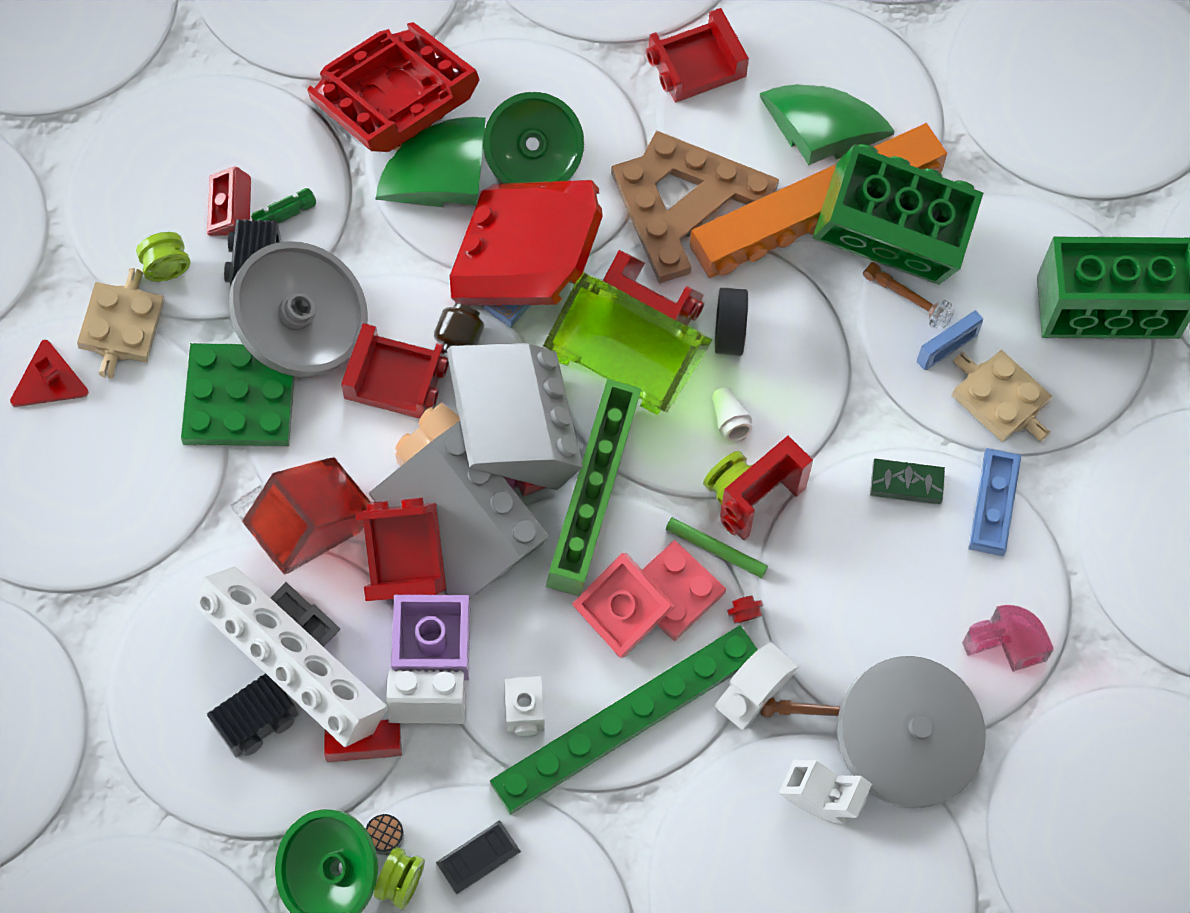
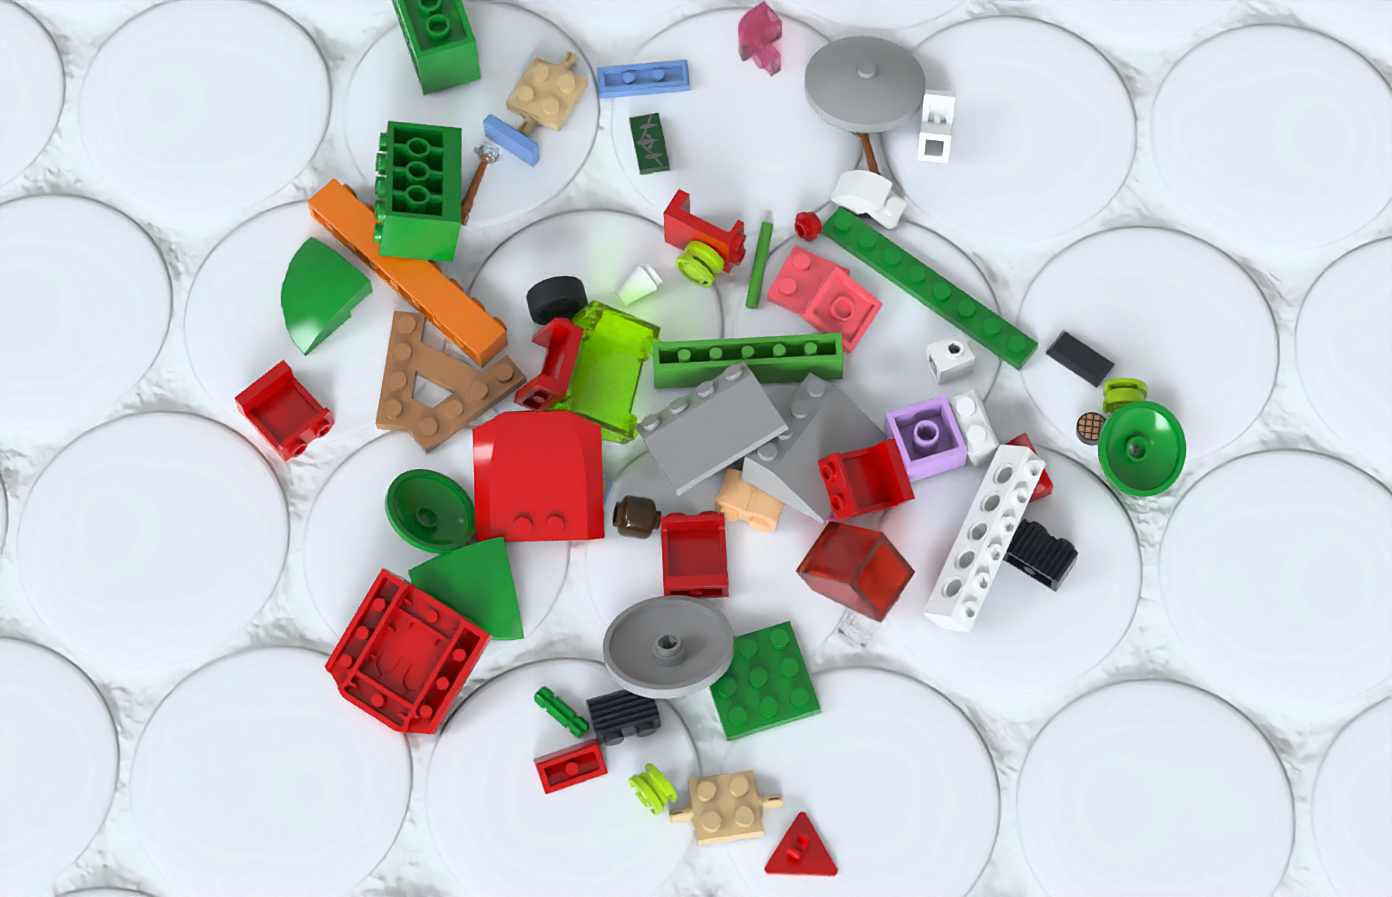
camera: 105 degrees left, 0 degrees up
(305, 614) = (938, 551): dark grey slope -> none

